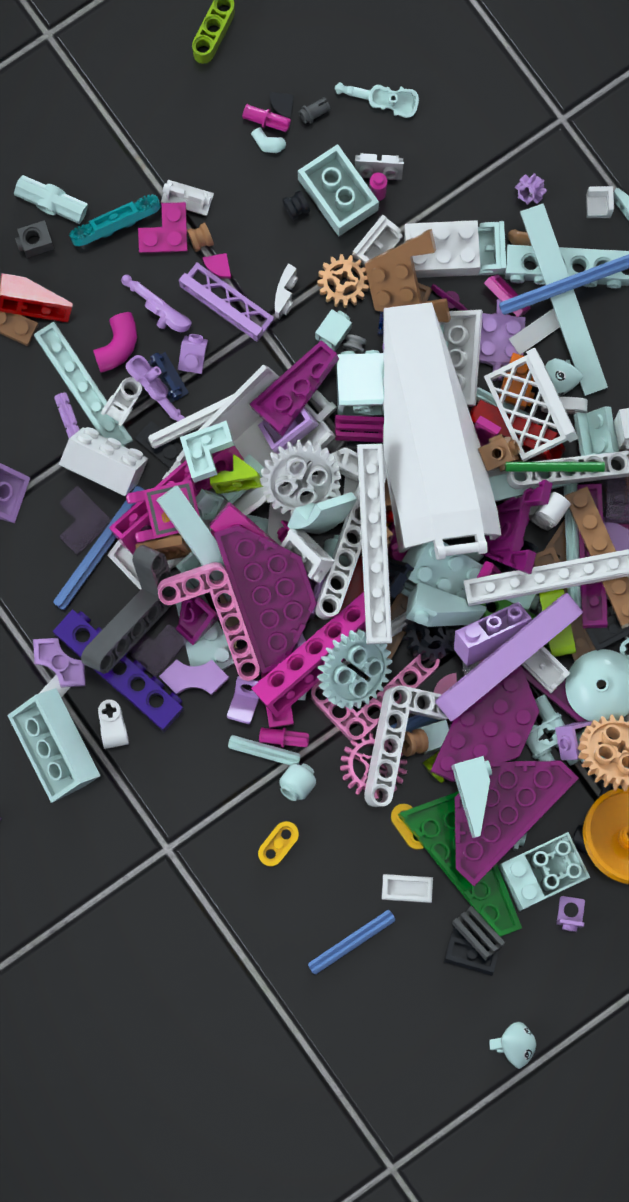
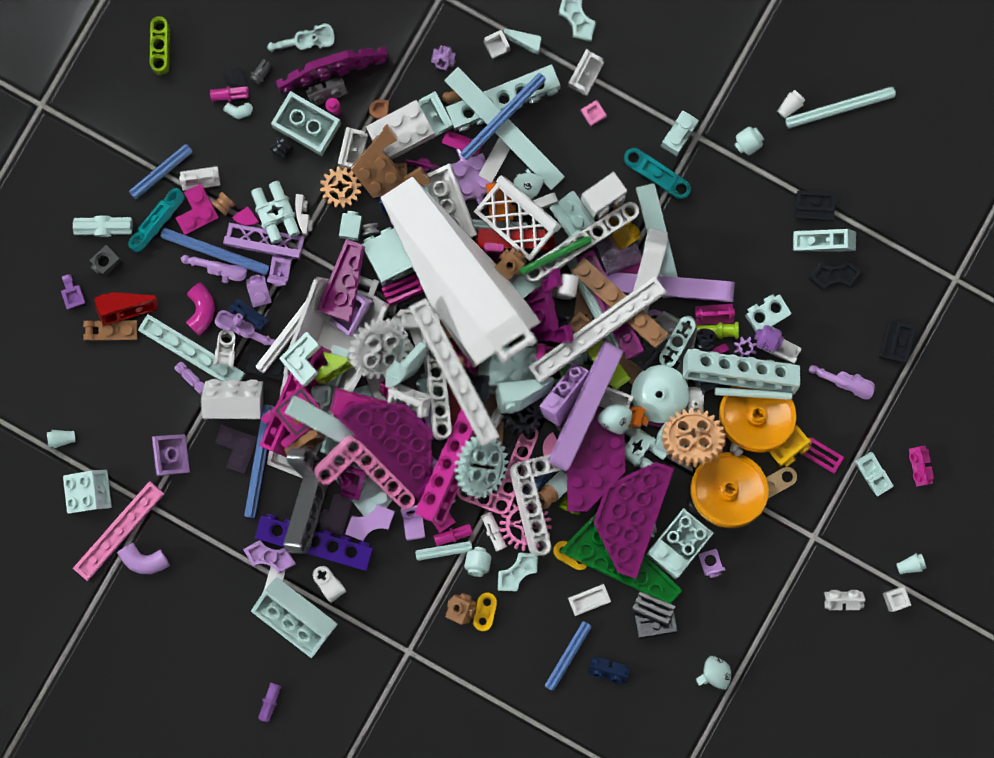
camera: 25 degrees left, 5 degrees up
(146, 169) = (160, 171): none -> medium blue axle
(164, 287) = (214, 251): none -> medium blue axle
(228, 342) = (279, 270): none -> lavender bracket
(253, 826) = (461, 608): none -> medium nougat brick
(265, 269) = (282, 206): none -> light aqua pin
(327, 819) = (509, 579): none -> light aqua tile
(333, 755) = (493, 531): none -> white pin
(398, 137) = (324, 68): none -> magenta plate
(398, 990) = (617, 674): none -> dark blue hinge
(429, 212) = (379, 108): none -> nougat tile
(473, 786) = (603, 509): light aqua slope -> none
(537, 688) = (615, 418): none -> light aqua piece
(561, 700) = (637, 417): none -> orange tile
(568, 741) = (652, 442): lavender bracket -> none

